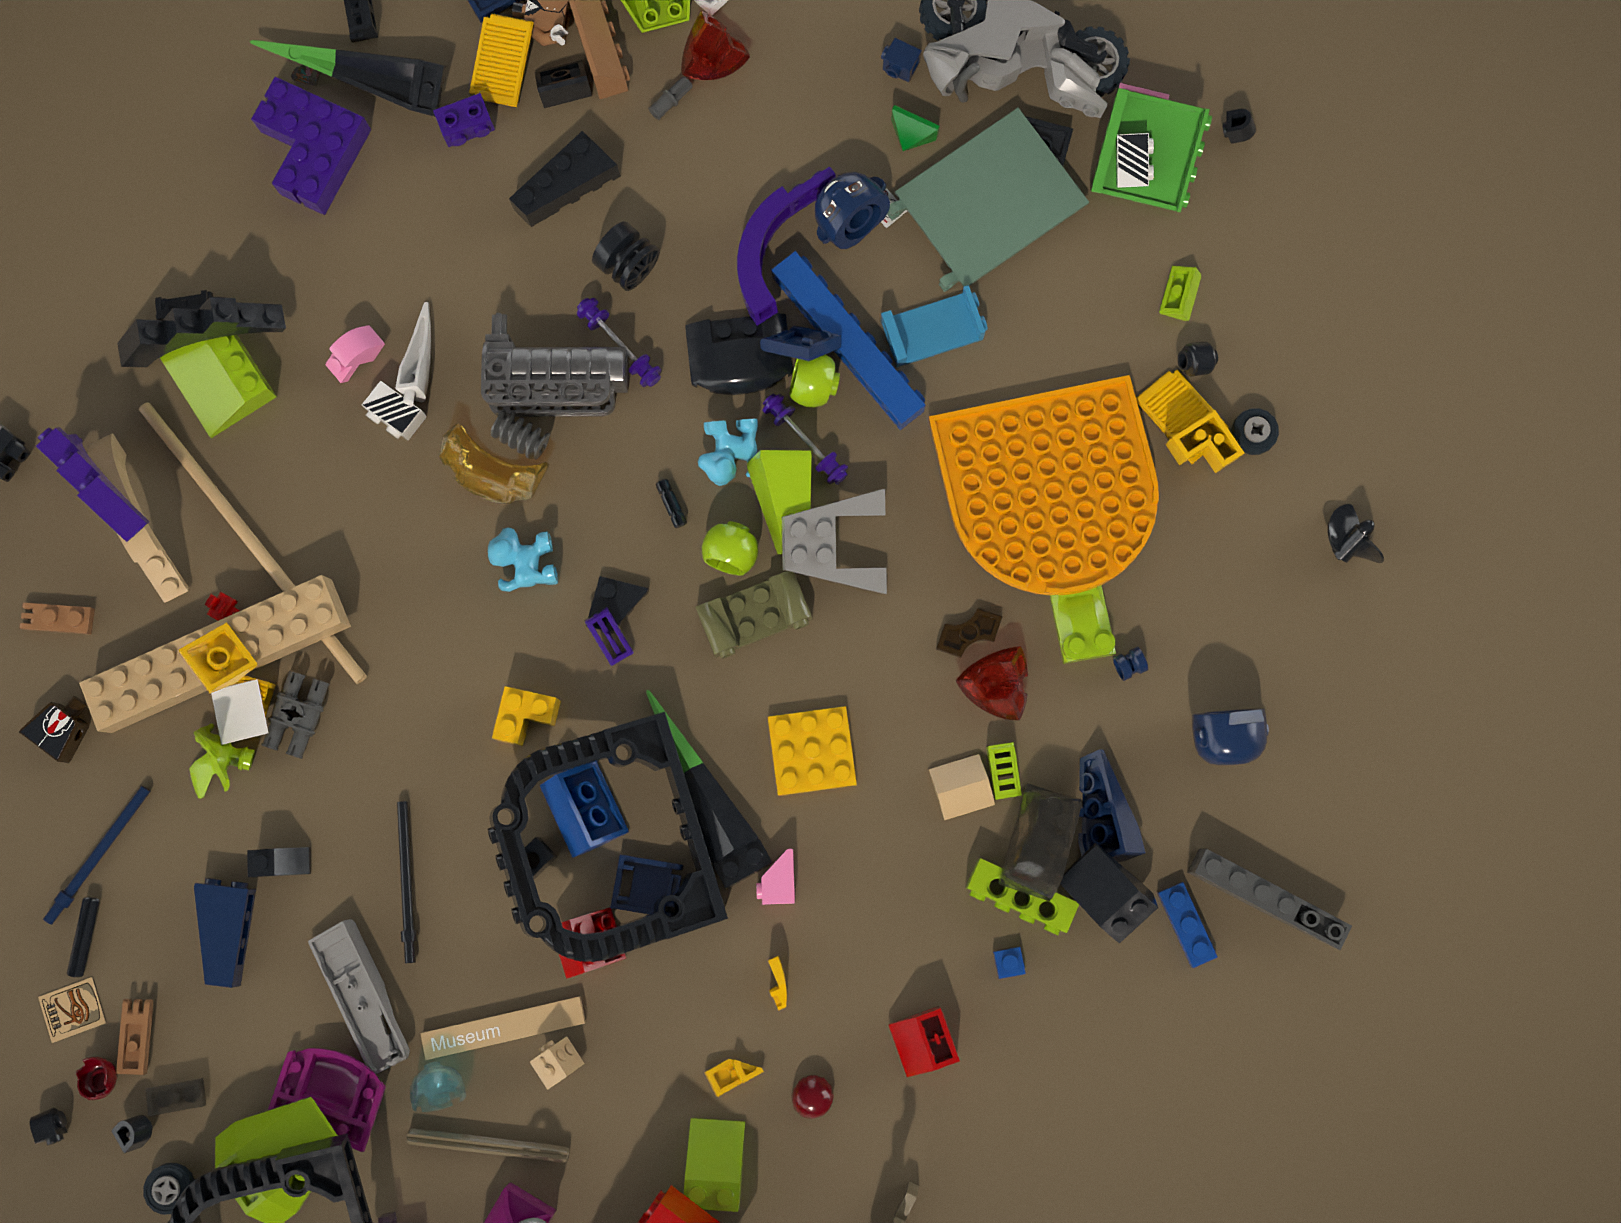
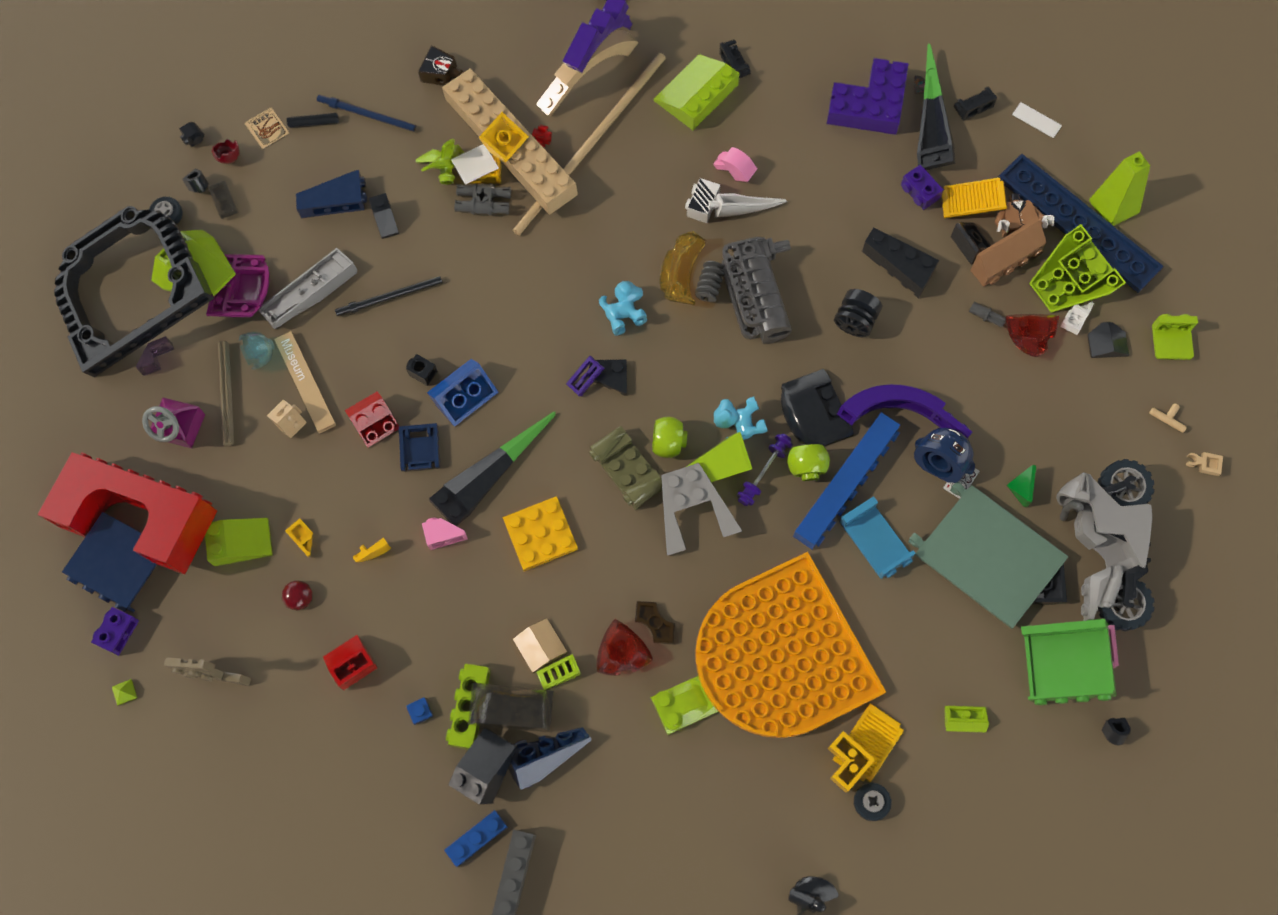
camera: 75 degrees right, 10 degrees down
(58, 618) = (510, 49): medium nougat hinge -> none
(134, 1037) = (256, 166): medium nougat hinge -> none
(181, 327) = (728, 72): black arch -> none
(518, 709) = (517, 331): yellow brick -> none
(596, 318) = (808, 308): dark purple axle -> none
(671, 503) = (691, 392): black axle -> none
(695, 902) = (415, 480): black arch -> none
(801, 343) = (831, 445): dark blue container -> none
(900, 60) = (1074, 462): dark blue brick -> none
(1130, 663) = (665, 750): dark blue wheel -> none
(1133, 160) = (1055, 650): brick -> none
(1197, 359) = (916, 742): black head -> none
(1230, 735) = (625, 833): dark blue piece -> none

